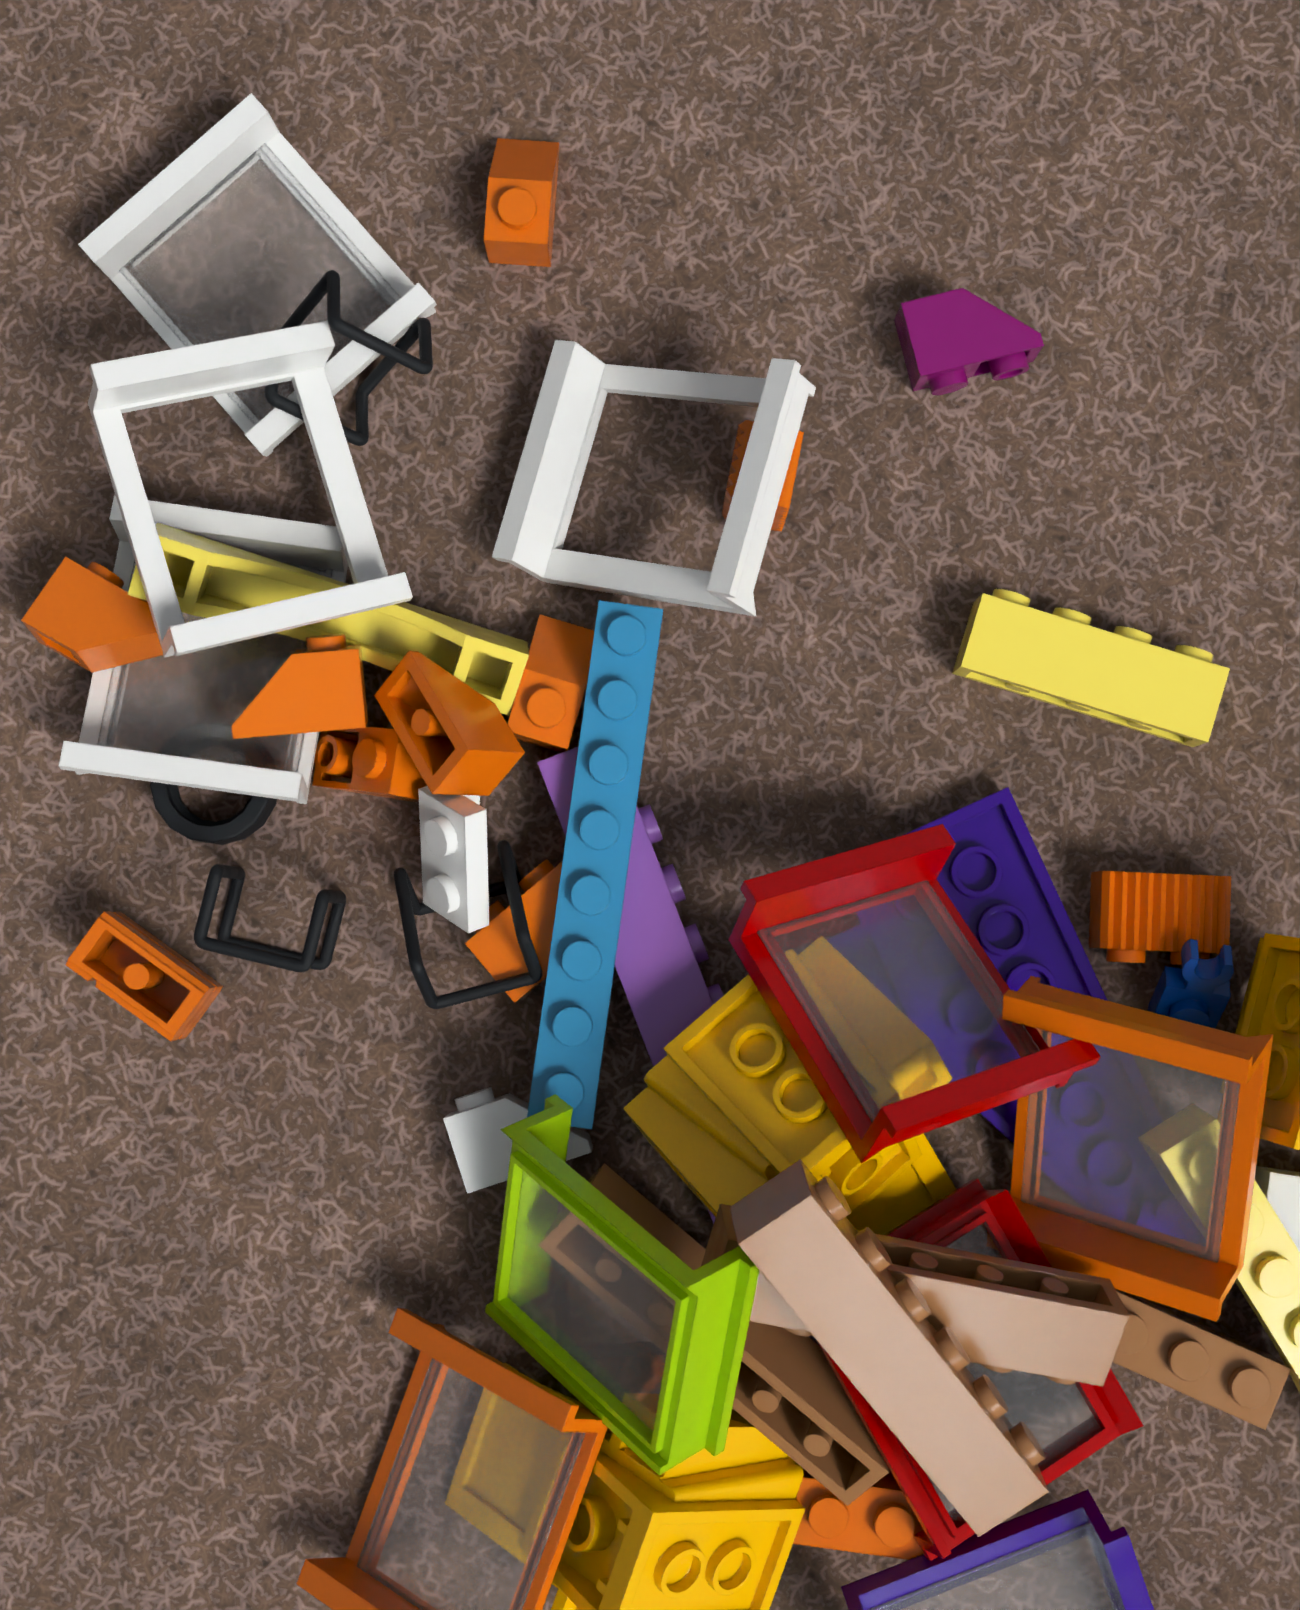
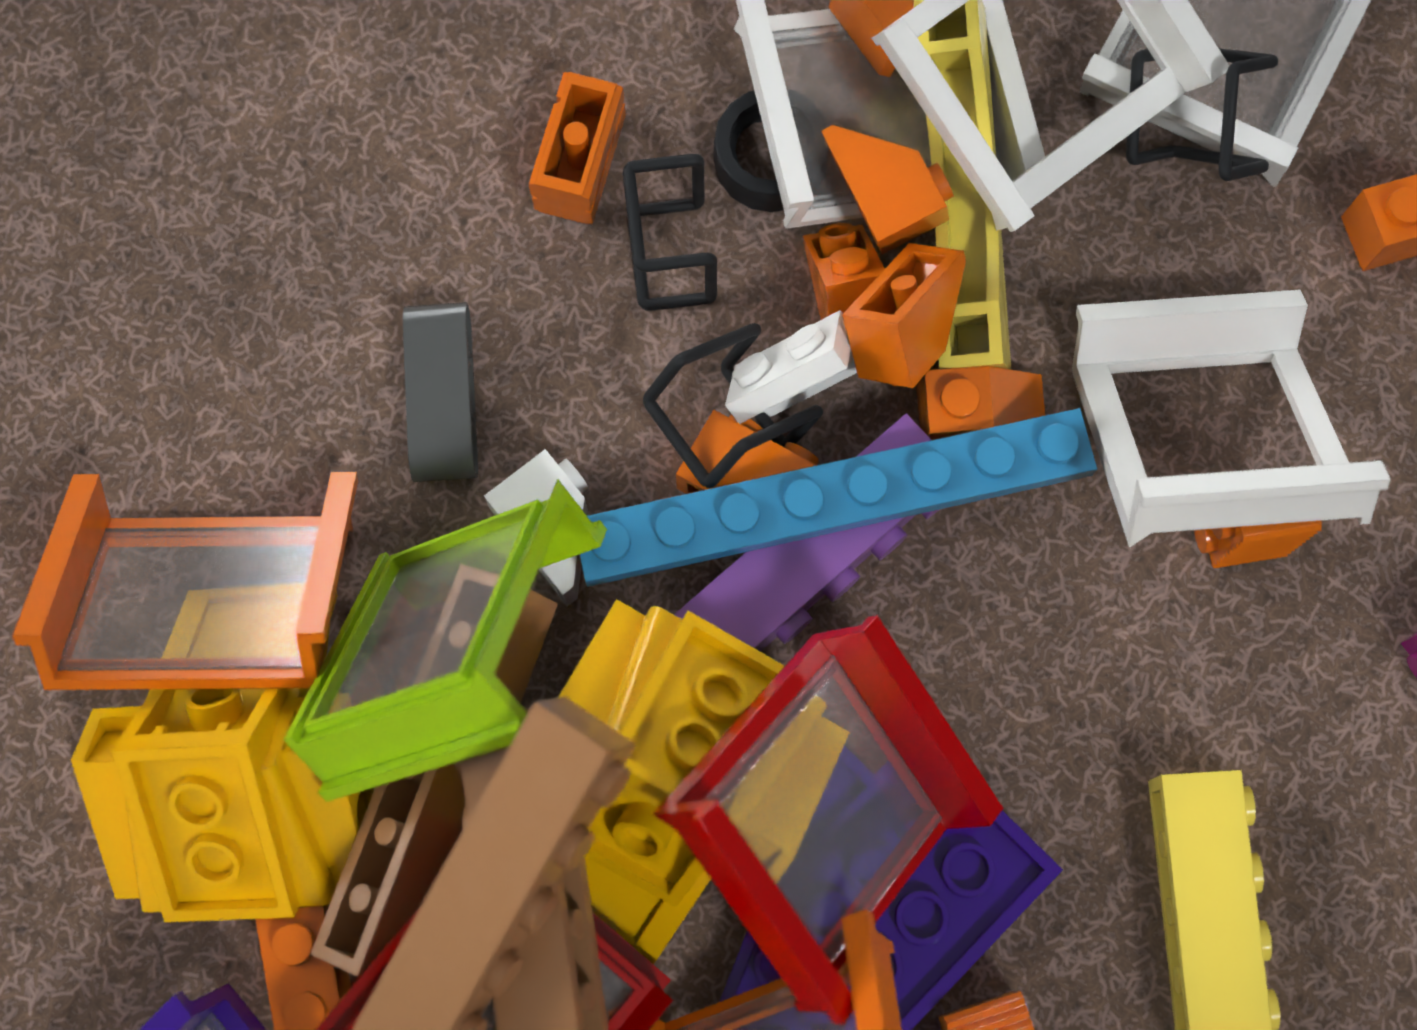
camera: 70 degrees right, 10 degrees down
(340, 1196) = (440, 392): none -> dark grey beam

